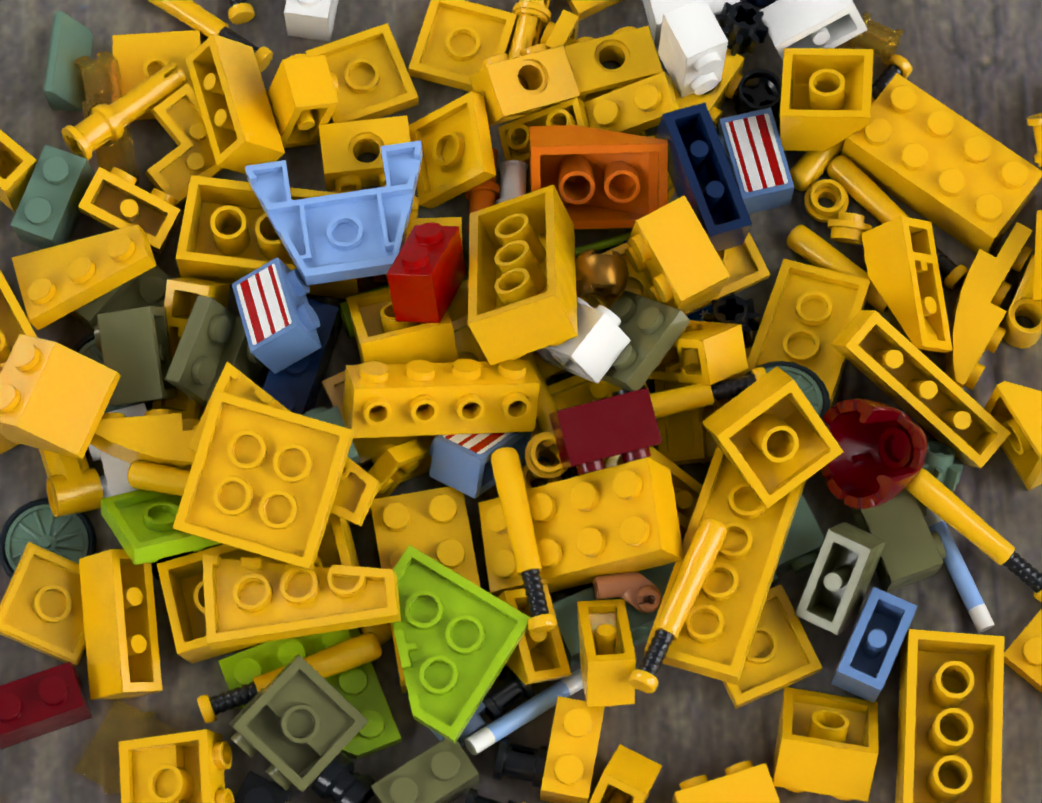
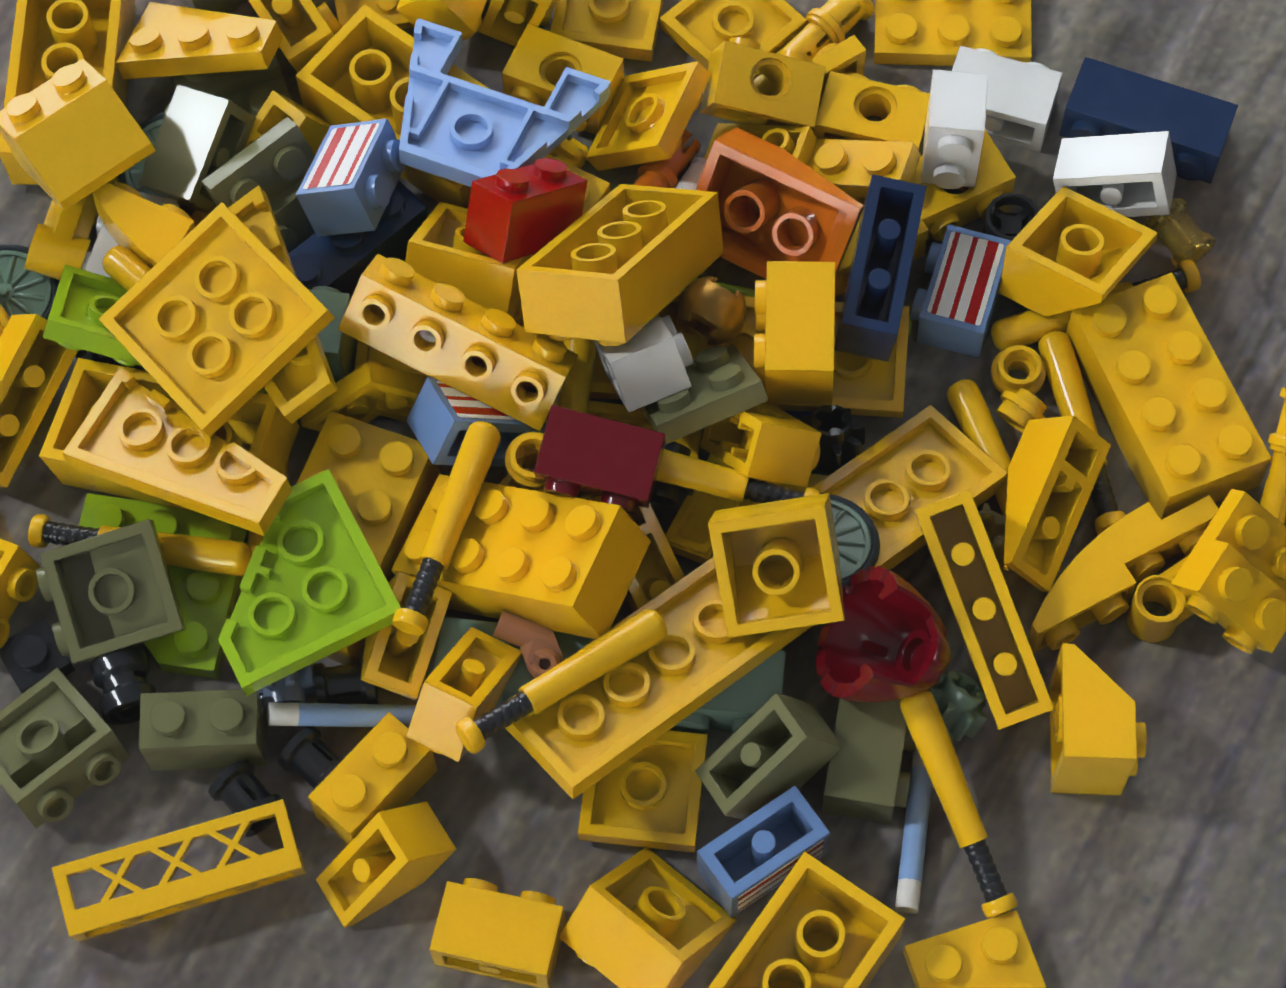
camera: 35 degrees right, 5 degrees down
(742, 27) = (1028, 143): black gear -> none

